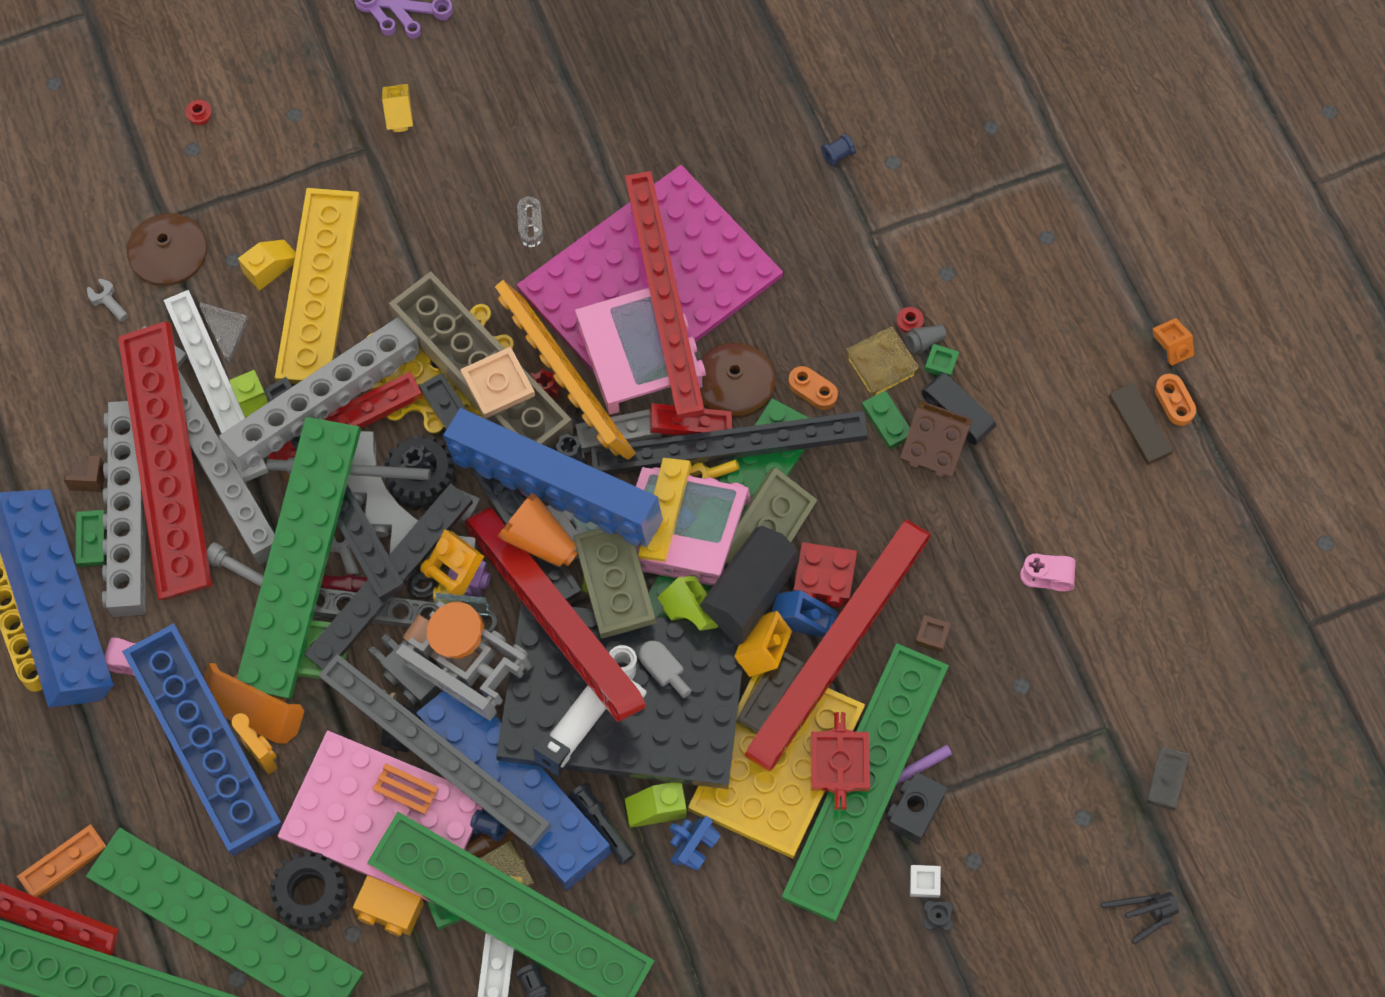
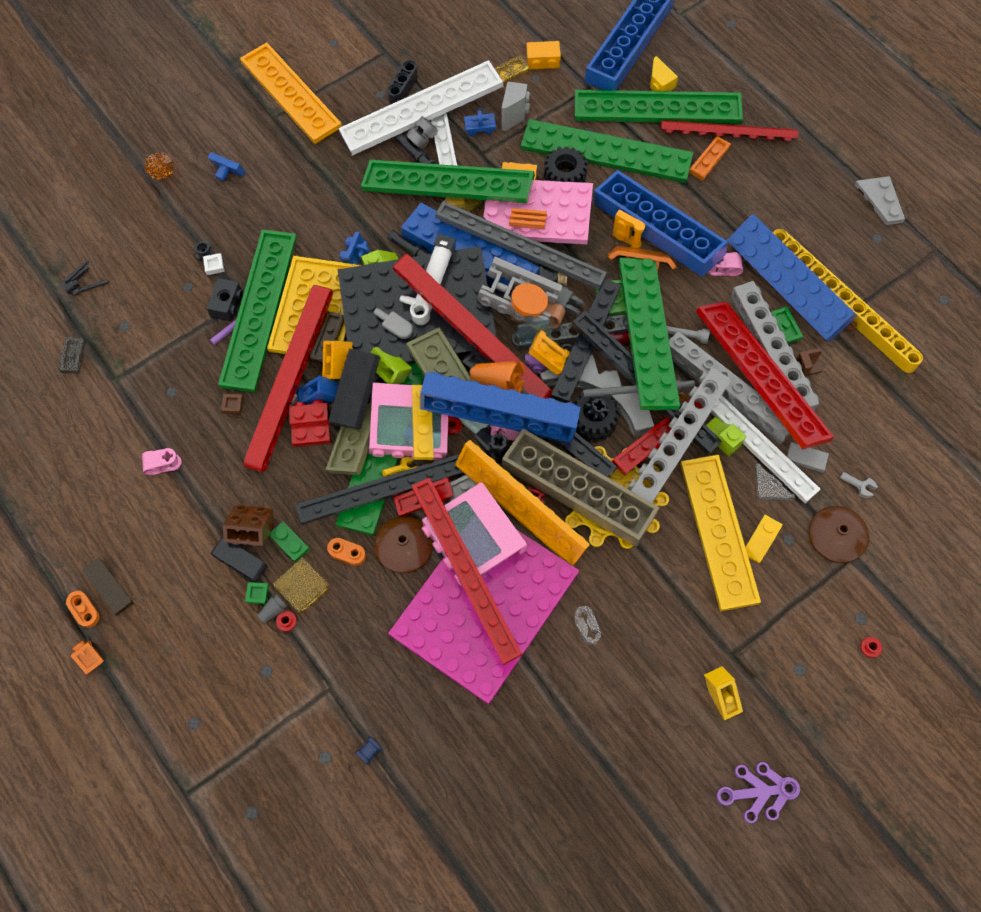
camera: 165 degrees right, 0 degrees up
(497, 382) = (559, 464): light nougat plate -> none
(840, 761) = (274, 306): red plate -> none

